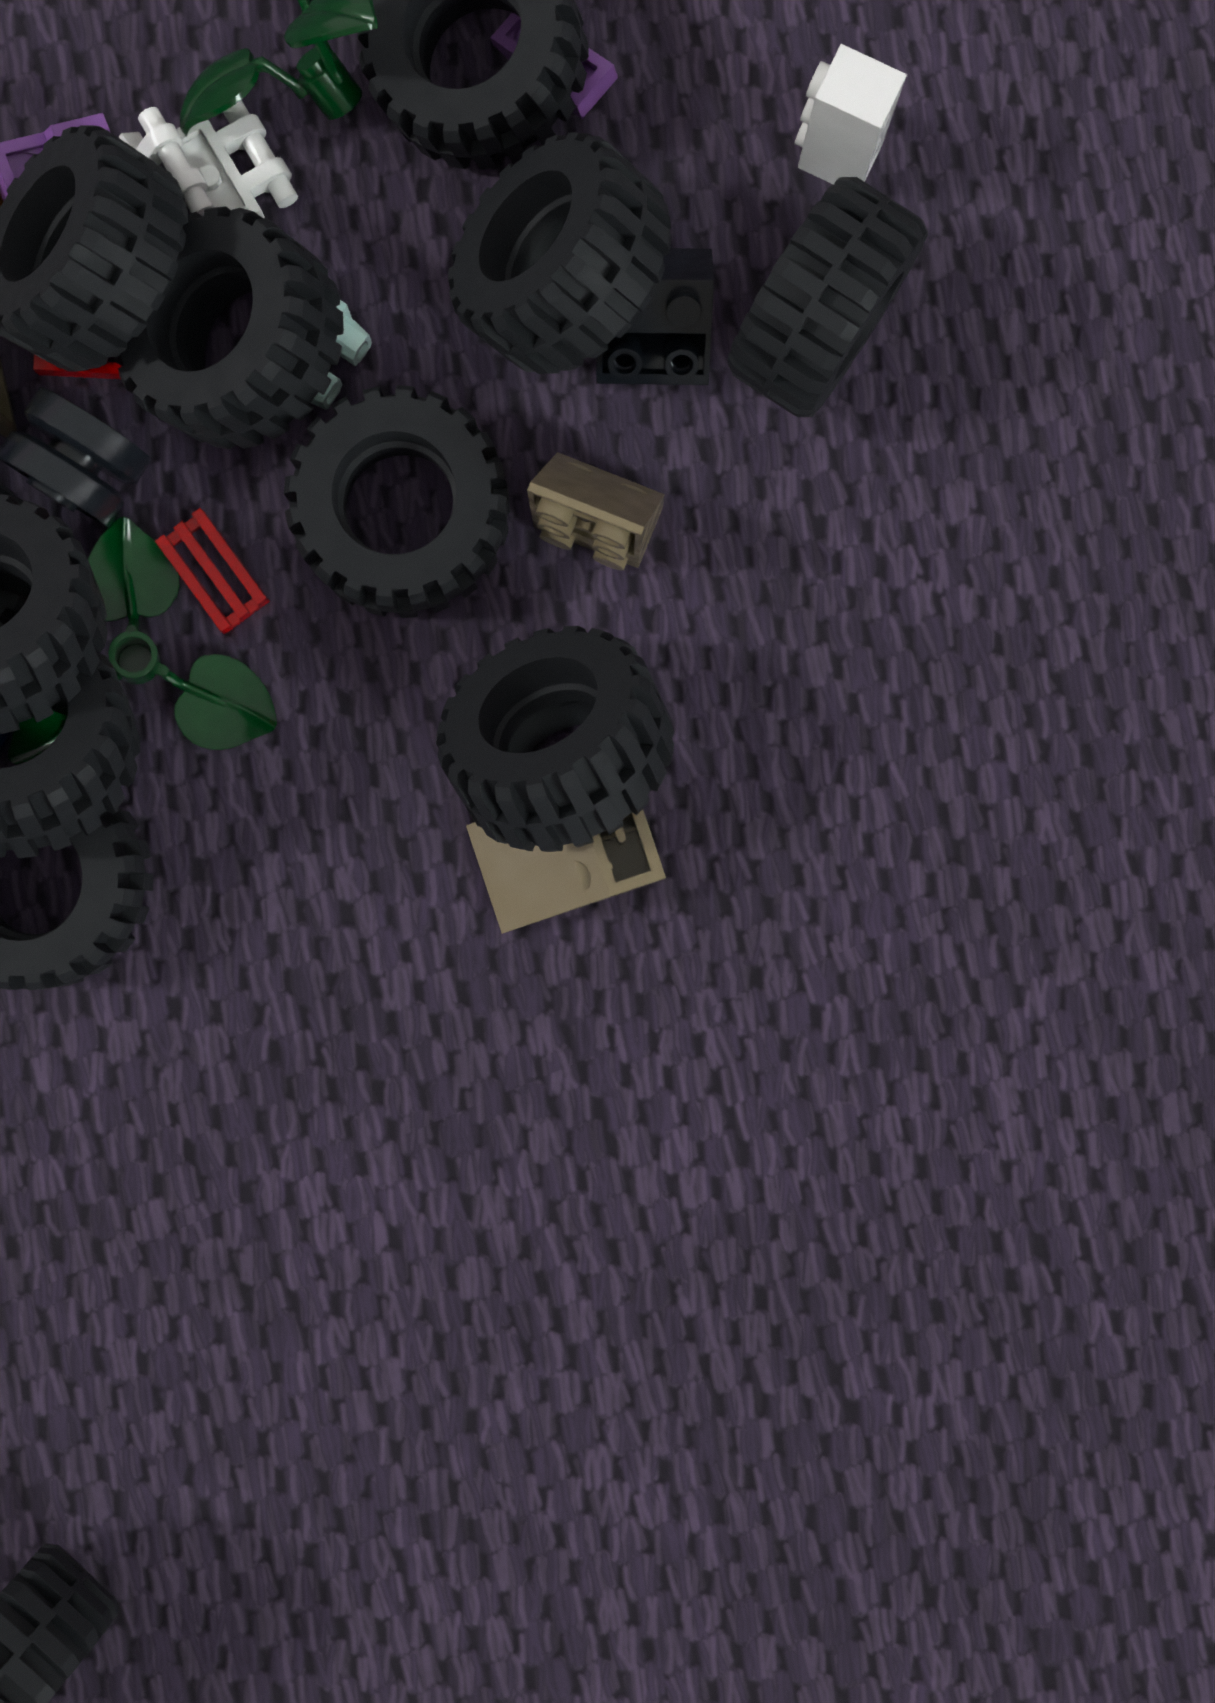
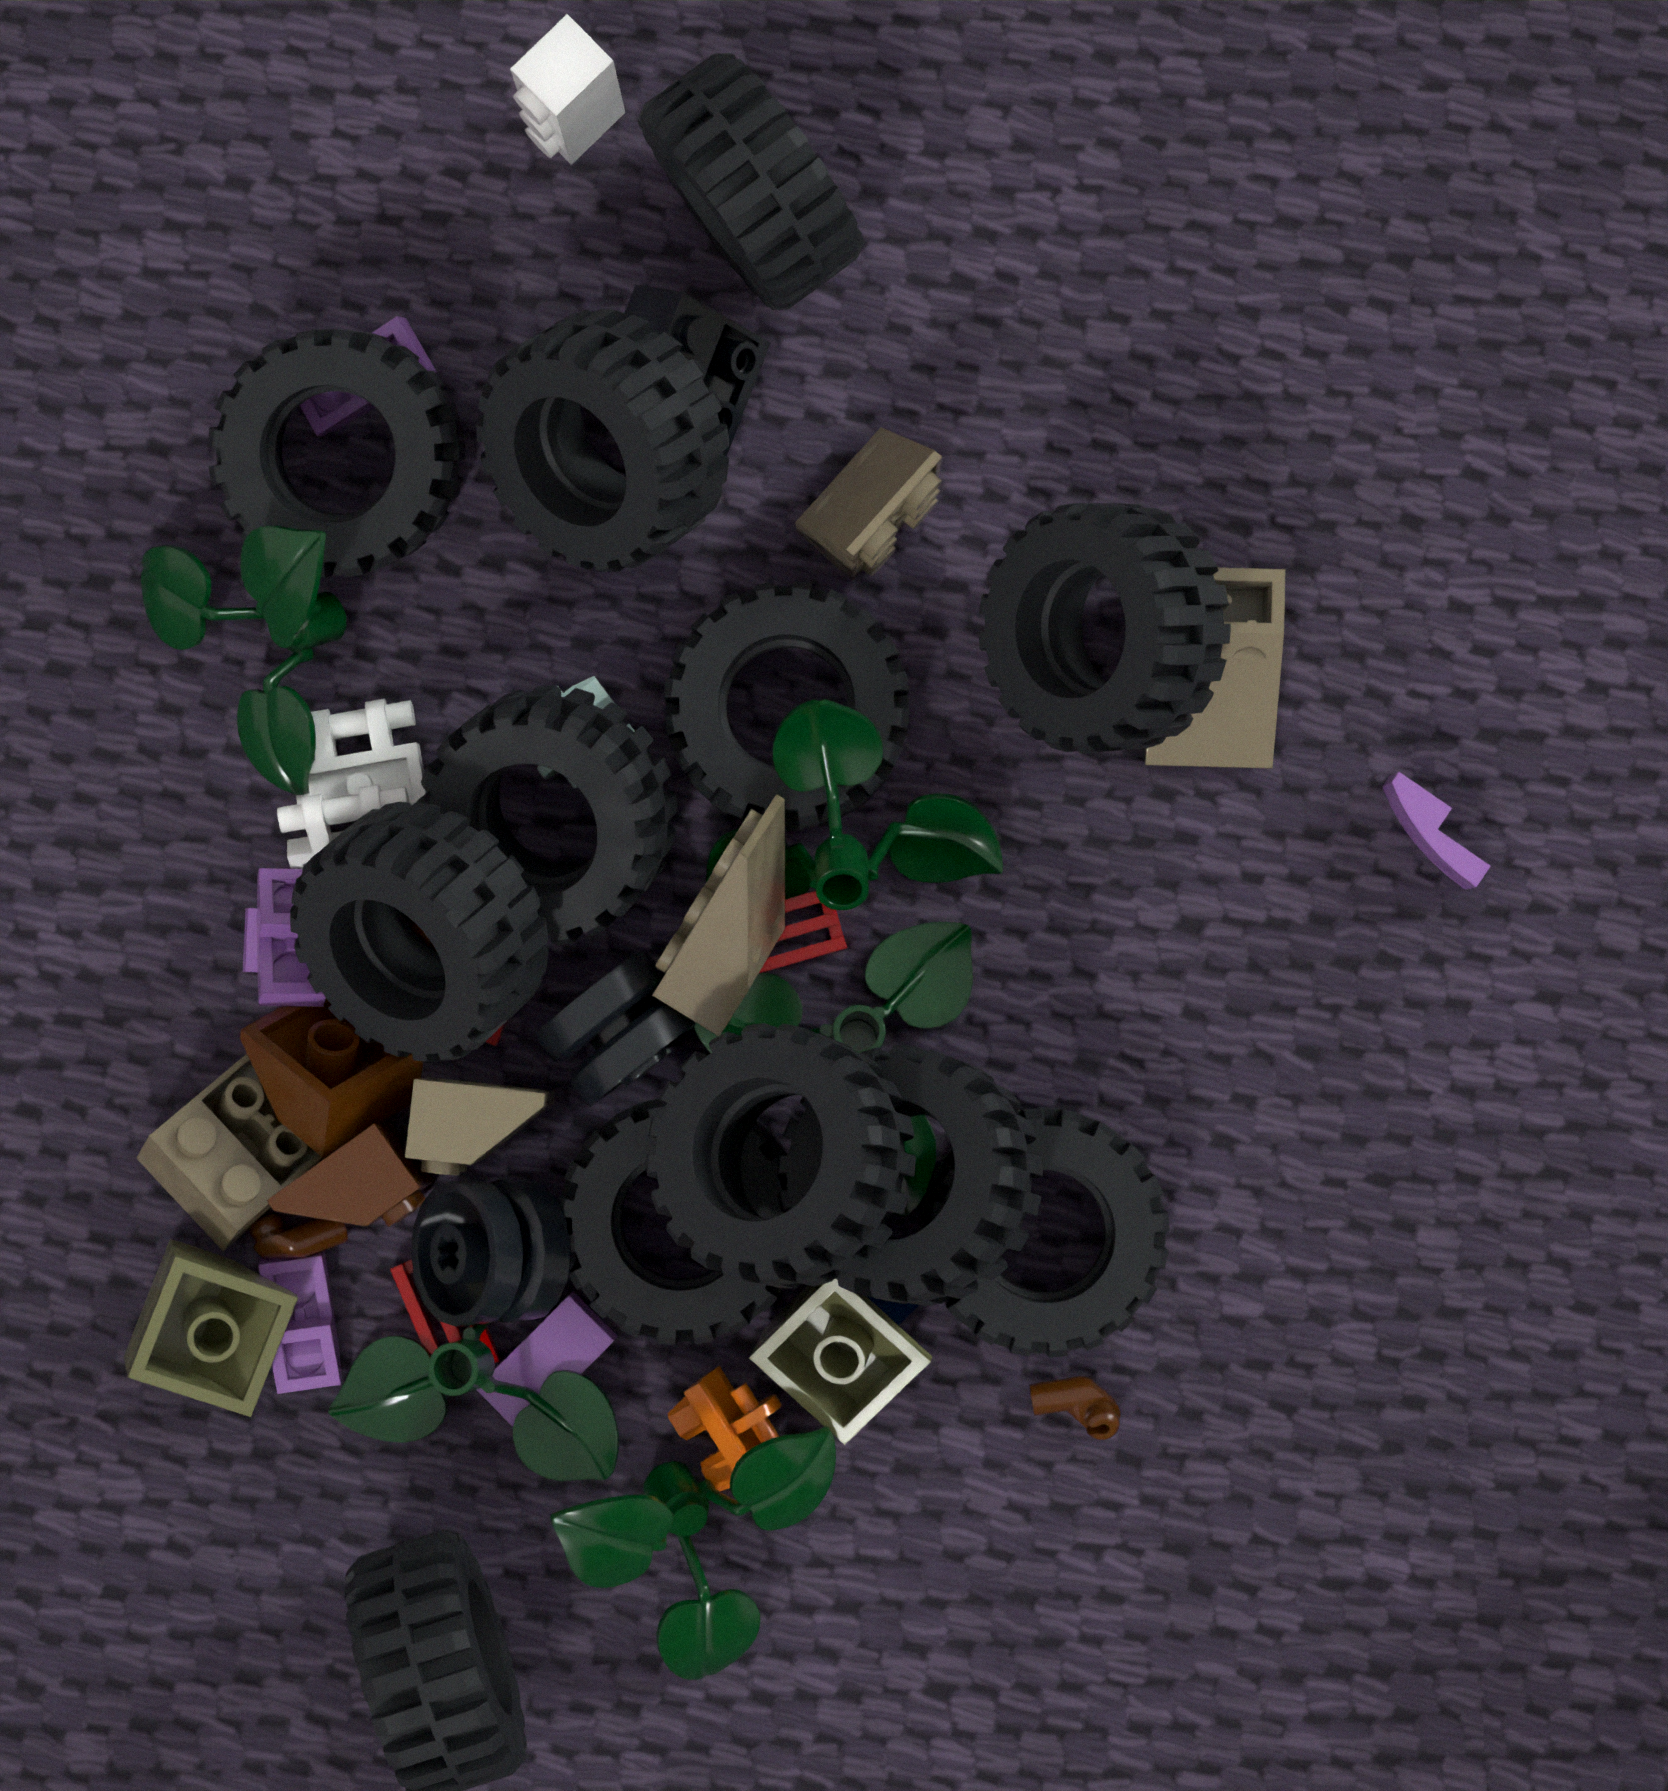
camera: 70 degrees left, 0 degrees up
(186, 515) = (729, 925): none -> dark tan slope
(363, 541) = (836, 745): none -> dark green plant
(504, 1077) = (1421, 817): none -> medium lavender slope

